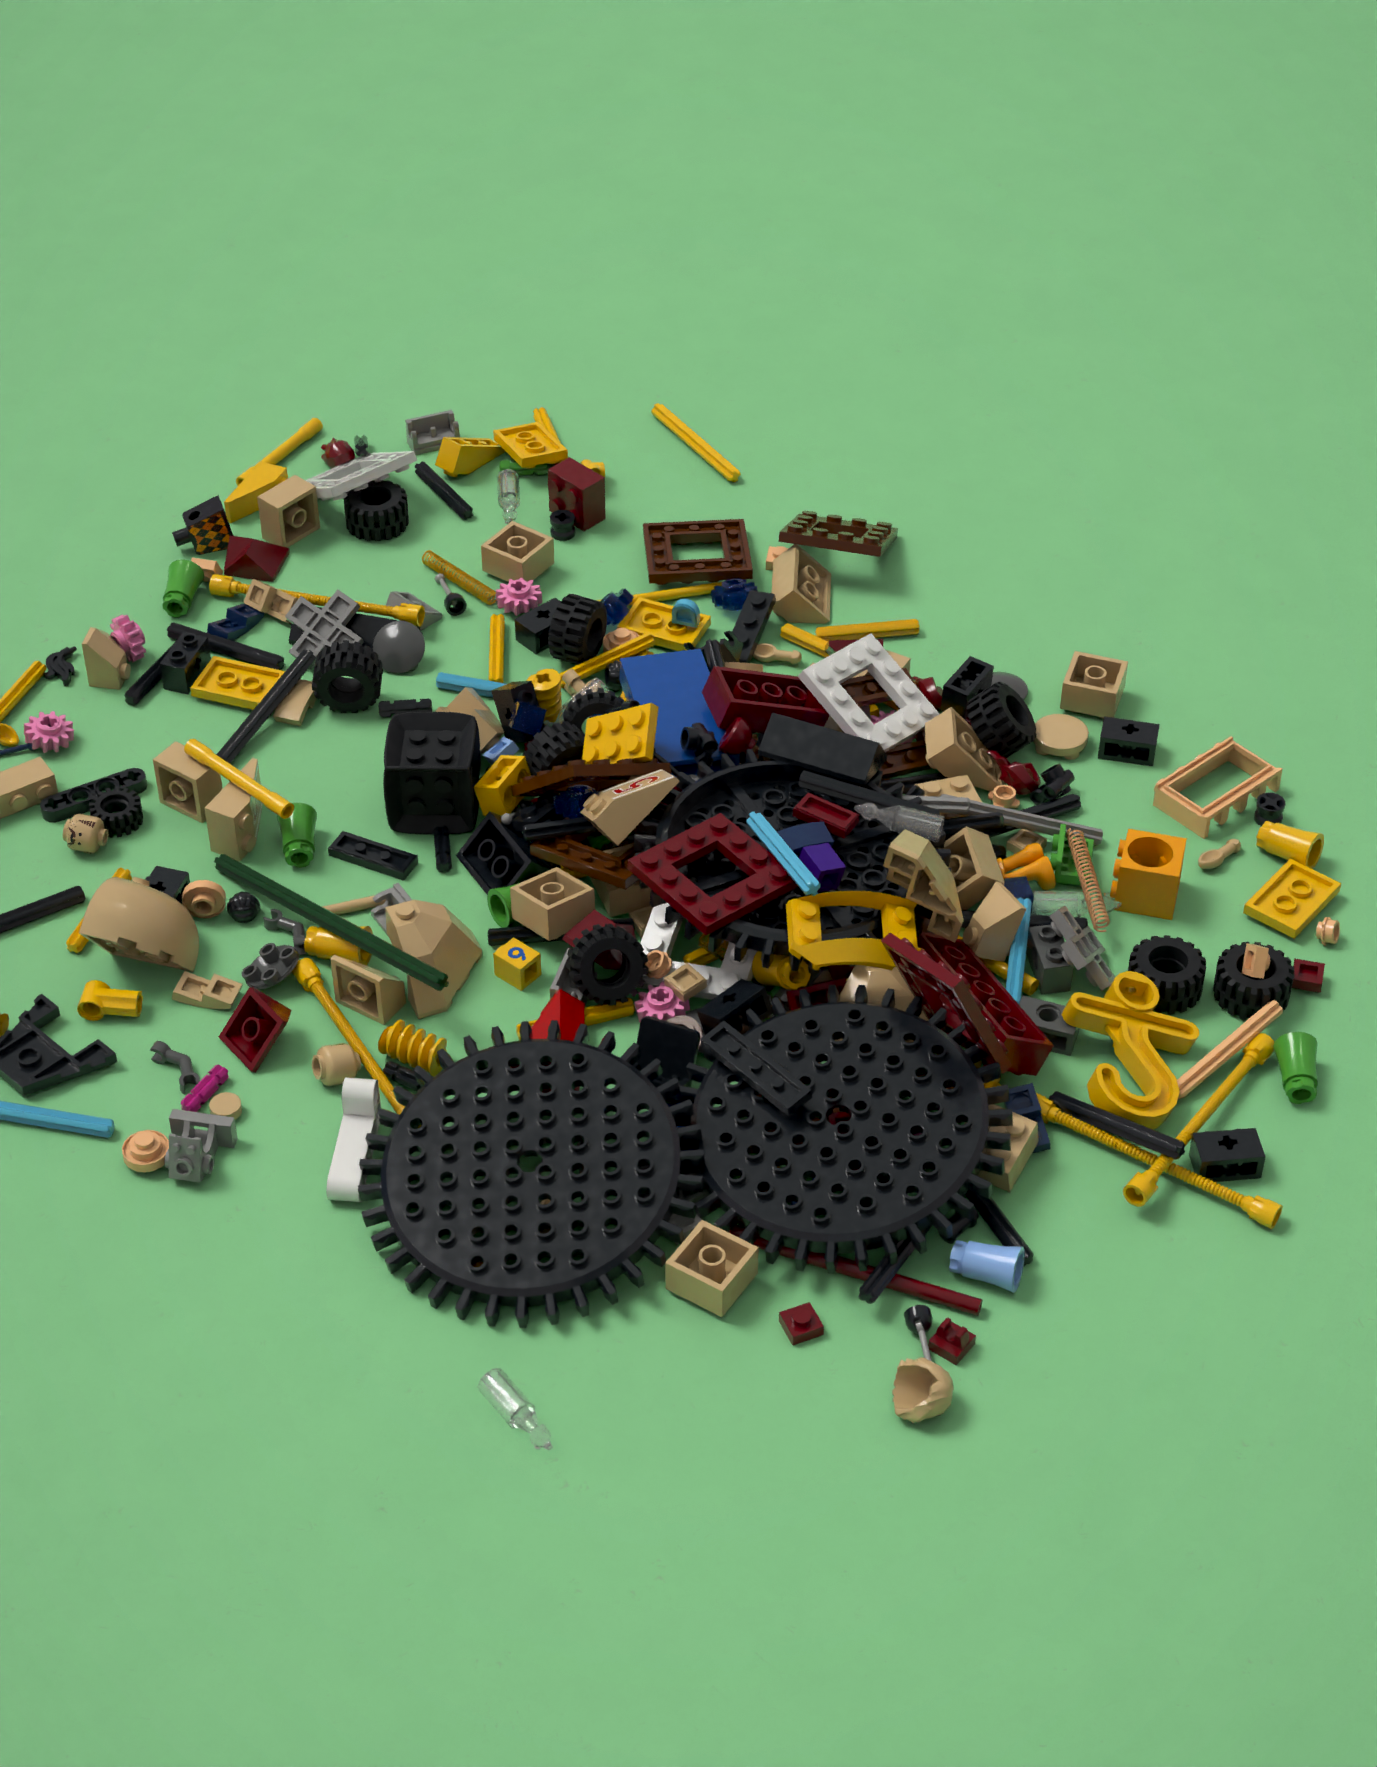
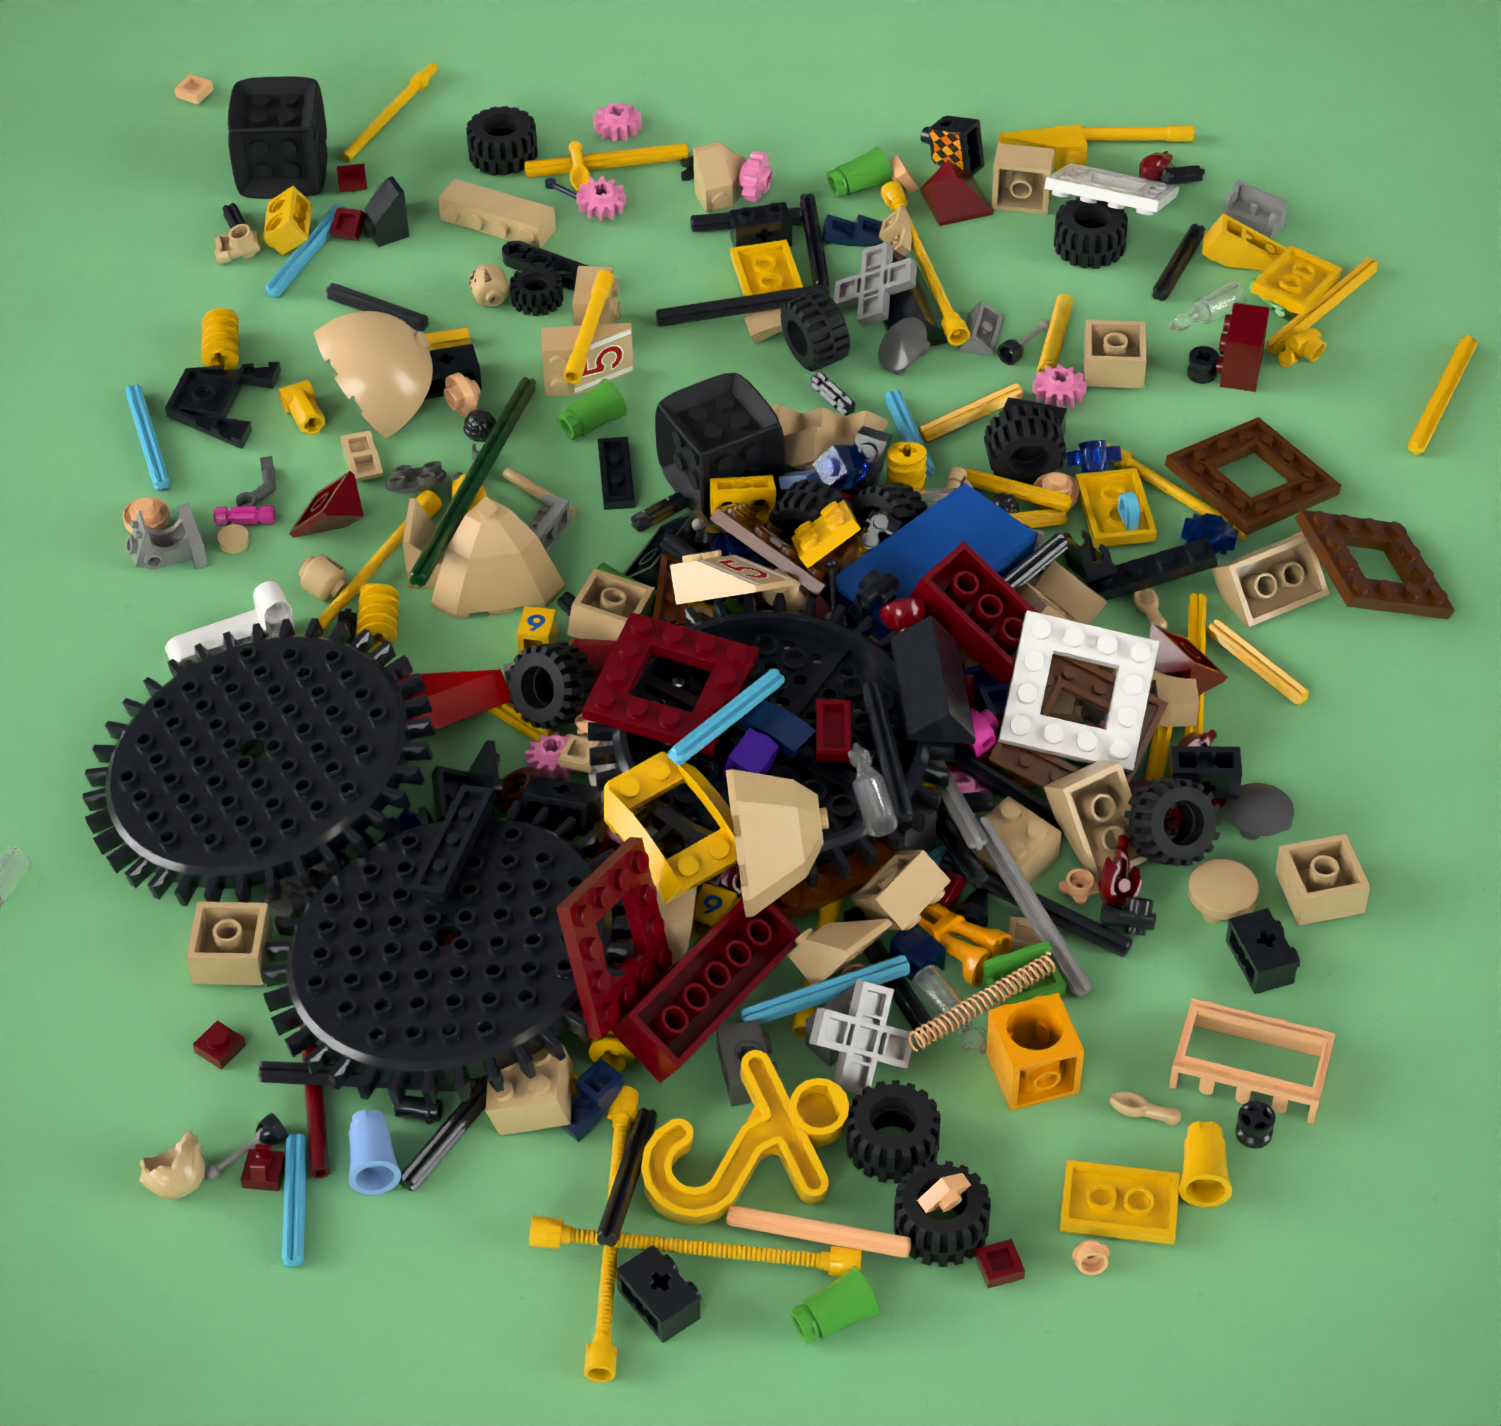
camera: 60 degrees right, 5 degrees up
(999, 1333) = (294, 1200): none -> medium azure axle

